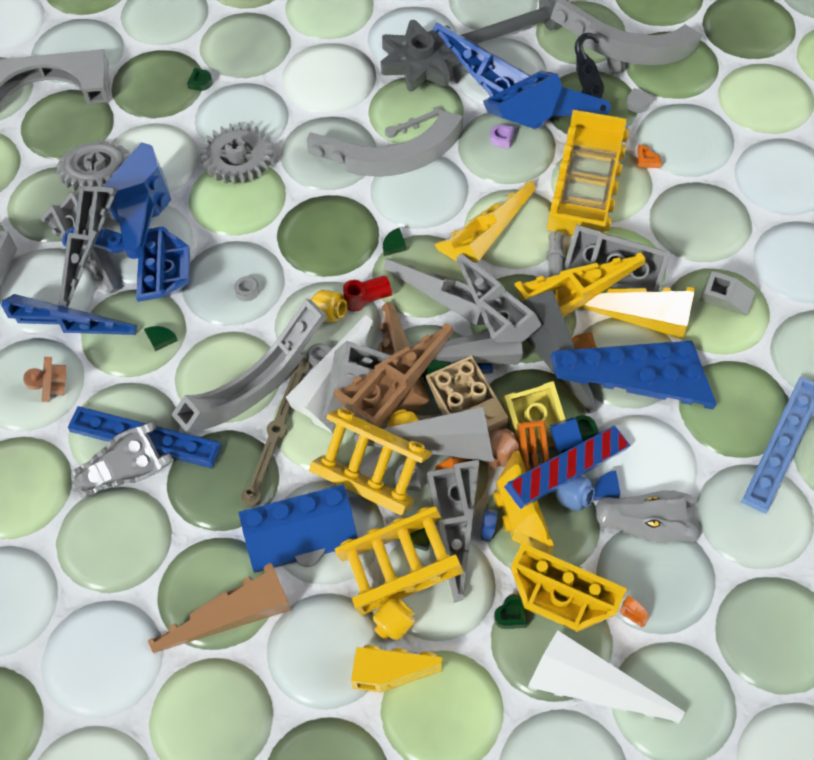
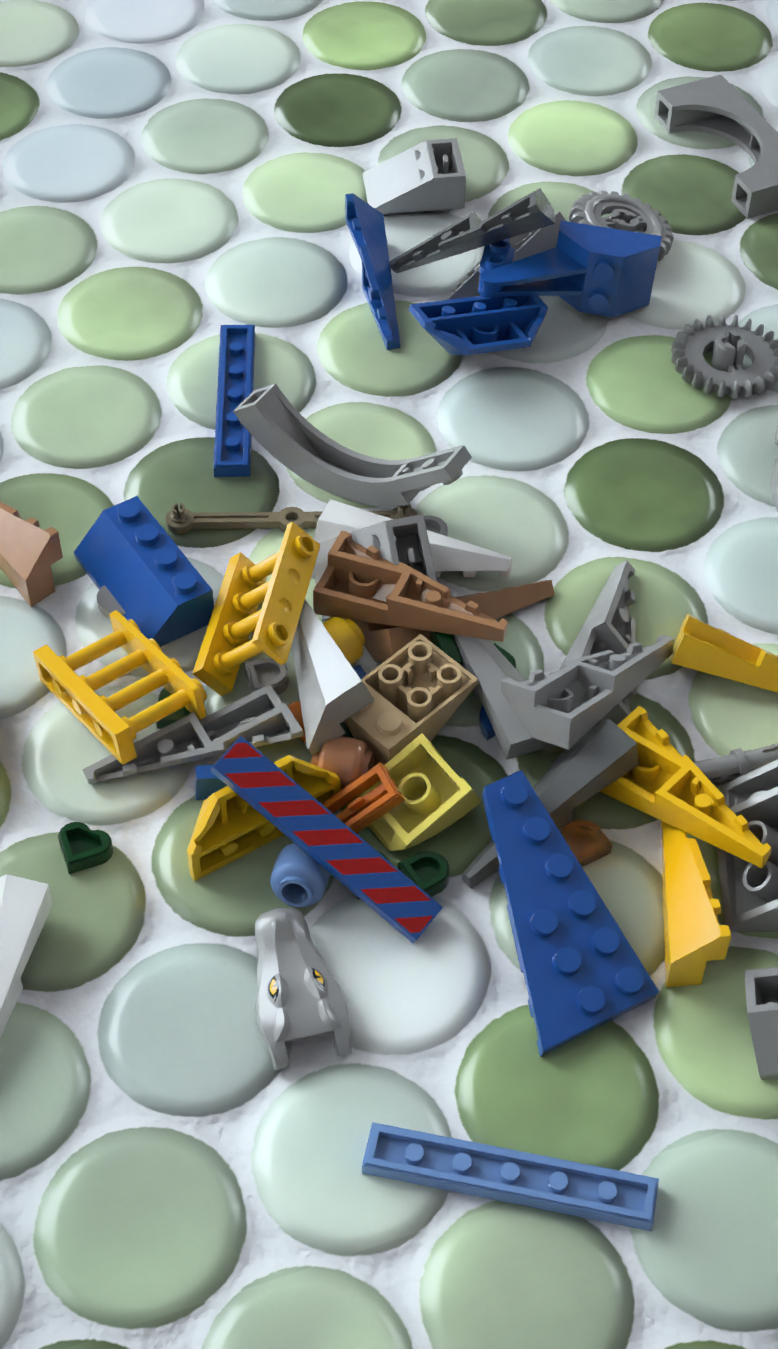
camera: 70 degrees right, 10 degrees down
(51, 379) = (273, 281): nougat hips -> none
(122, 461) = (186, 381): light grey animal -> none
(160, 337) = (388, 369): dark green tile -> none
(246, 288) = (505, 430): light grey tile -> none
(331, 303) = (509, 514): yellow head -> none
(359, 293) = (548, 546): red piece -> none
(393, 619) = (33, 706): yellow head -> none
(394, 242) = (664, 564): dark green tile -> none
(563, 590) = (121, 881): yellow wedge -> none
(566, 434) = (395, 837): blue tile -> none
(607, 486) = (331, 924): blue tile -> none
(634, 611) = (126, 991): orange tile -> none

